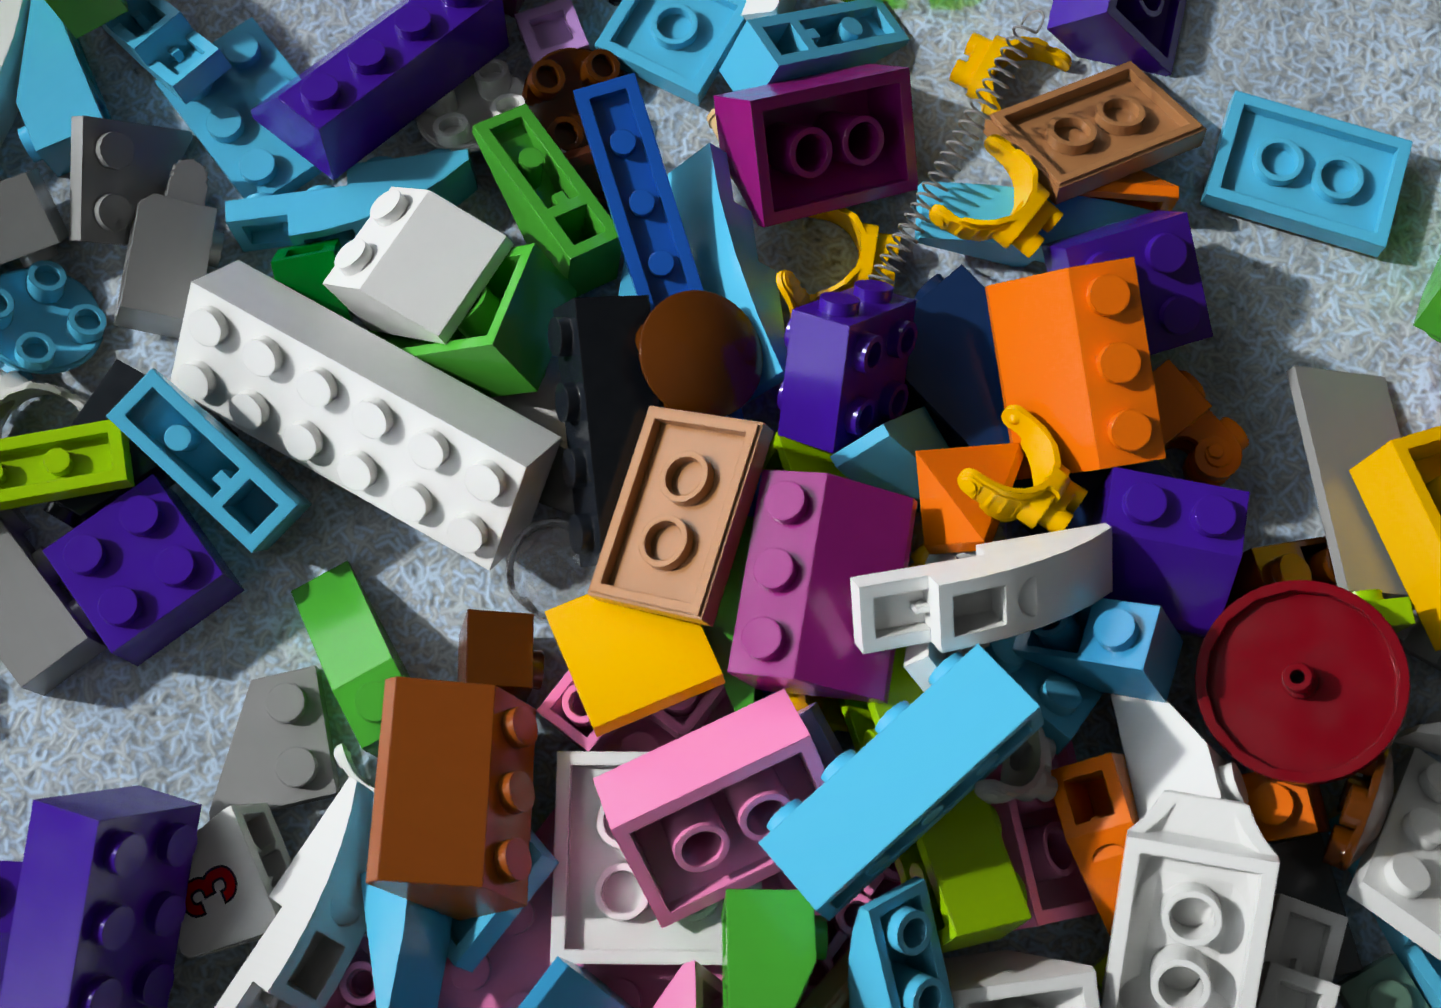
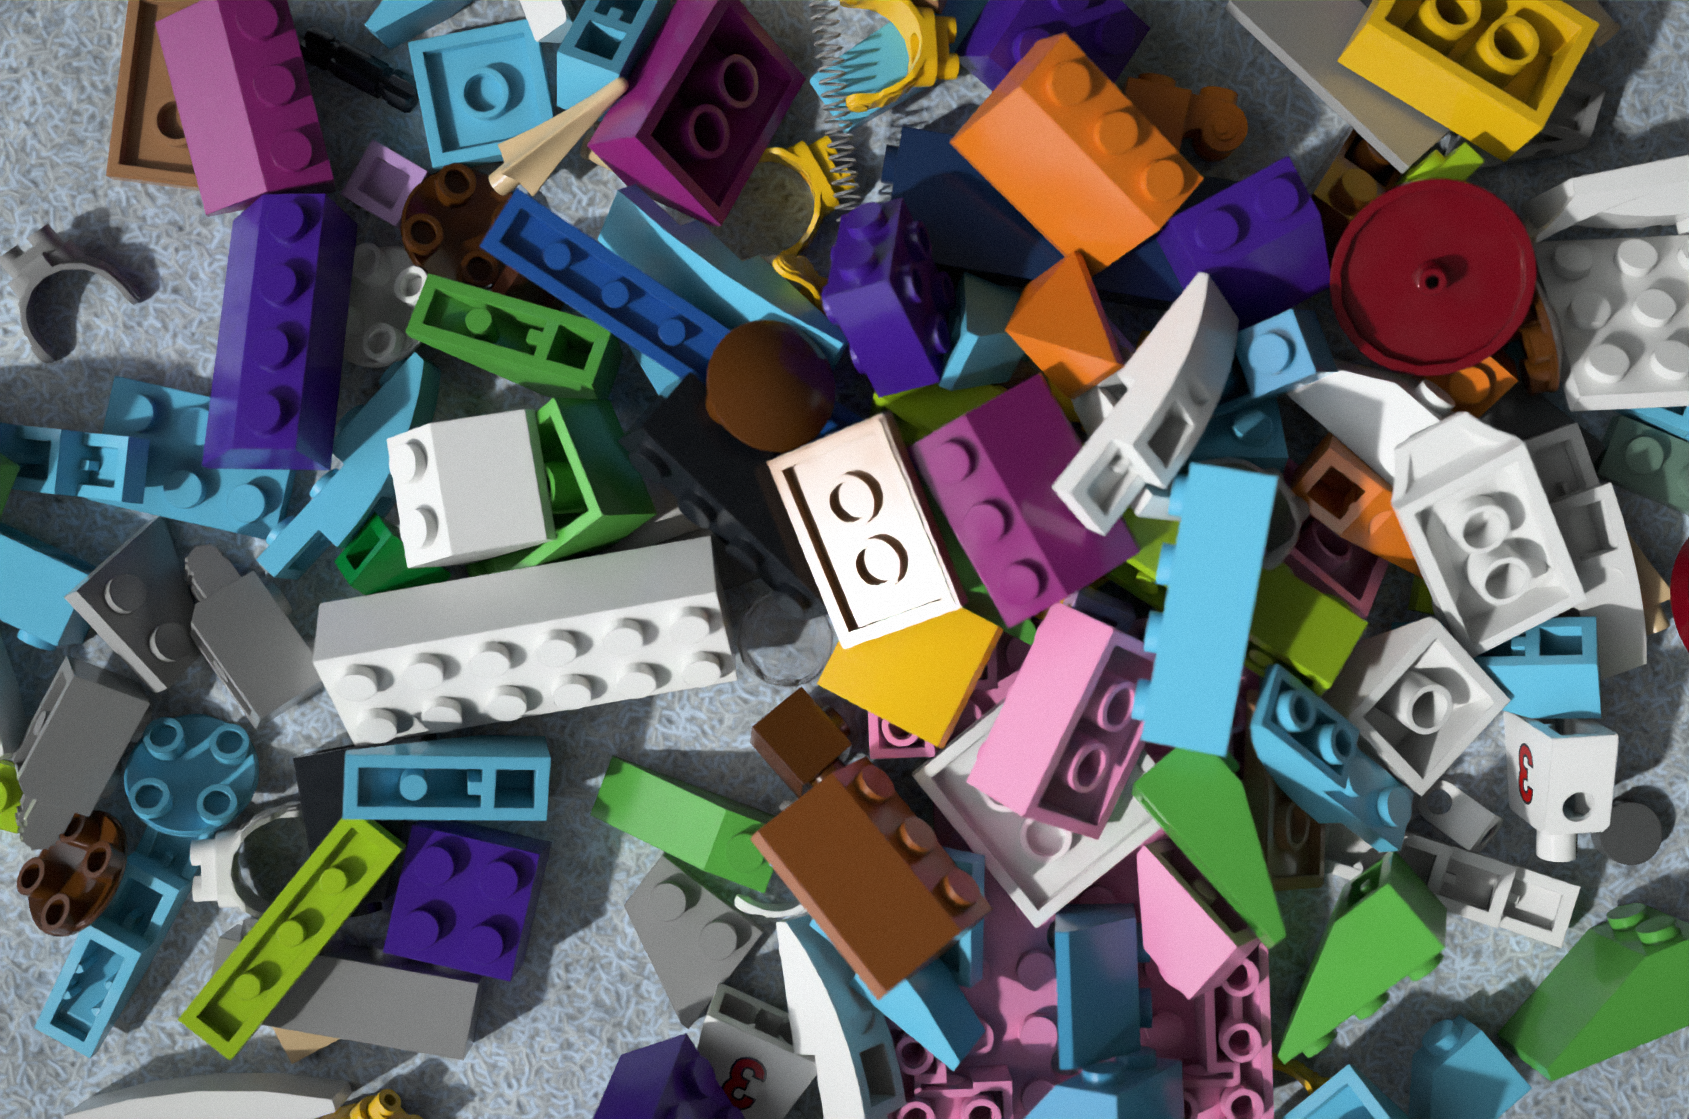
camera: 45 degrees left, 15 degrees up
(676, 85) = (537, 152): none -> tan piece
(1051, 491) = (1132, 272): yellow helmet -> none

